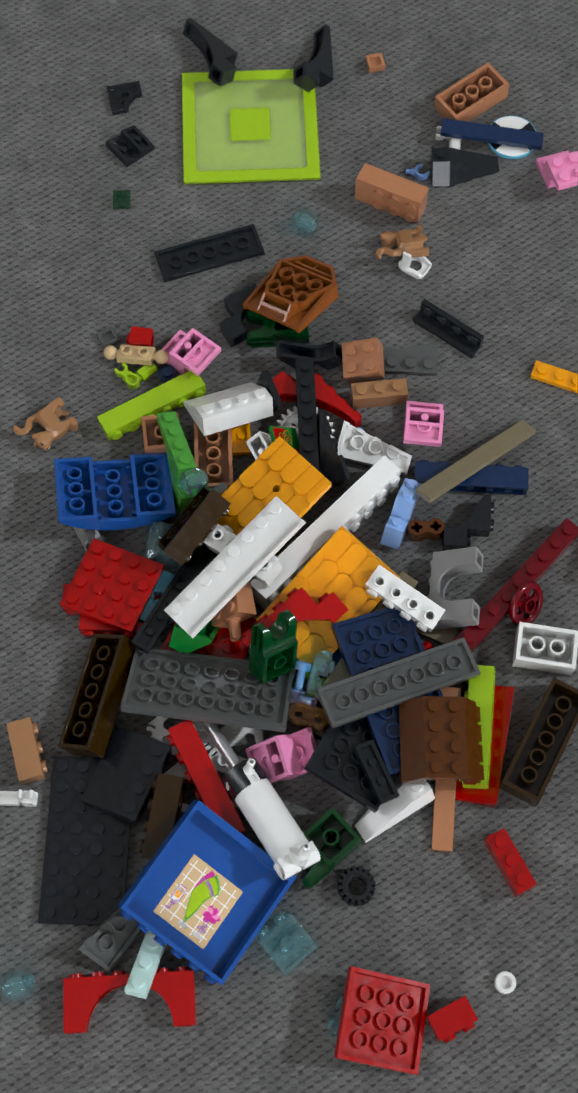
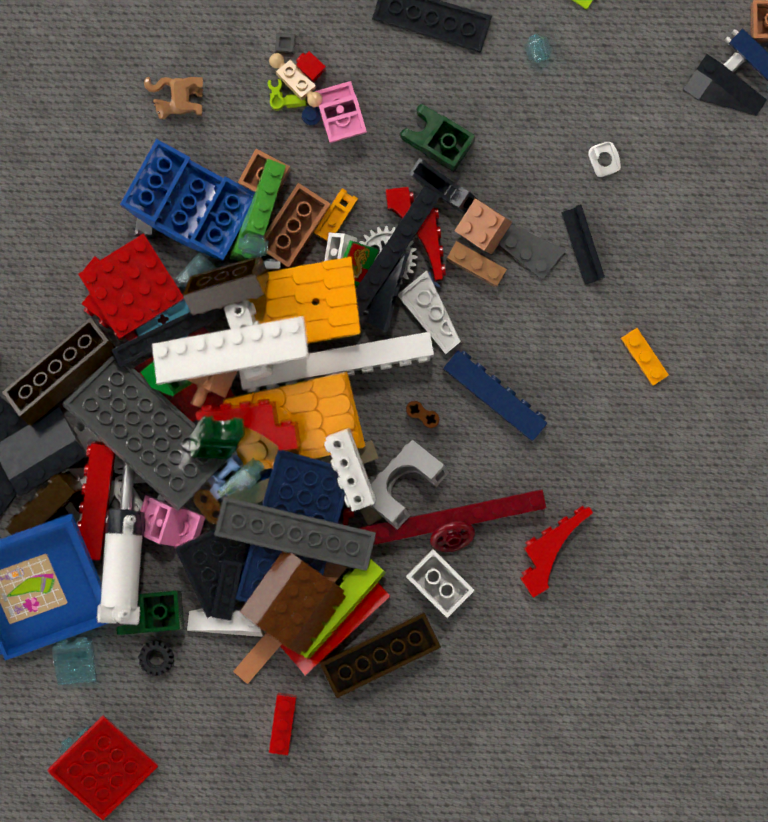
camera: 35 degrees right, 20 degrees up
(157, 400) = (275, 138): lime brick -> none
(230, 408) = (337, 190): white slope -> none
(232, 327) = (417, 93): black arch -> none
(265, 380) = (379, 199): black tile -> none
(294, 292) = (446, 134): dark orange hinge -> none
(391, 193) = (634, 75): nougat brick -> none
(401, 514) = (412, 387): light blue arch -> none
(406, 241) = (608, 139): medium nougat animal -> none
(414, 171) = (677, 62): medium blue piece -> none
(423, 423) = (490, 321): bright pink bracket -> none
(452, 1019) = (155, 801): red brick -> none
(475, 461) = (507, 387): dark tan tile -> none
(477, 525) = (470, 440): black arch -> none
(505, 982) = (214, 803): white tile -> none

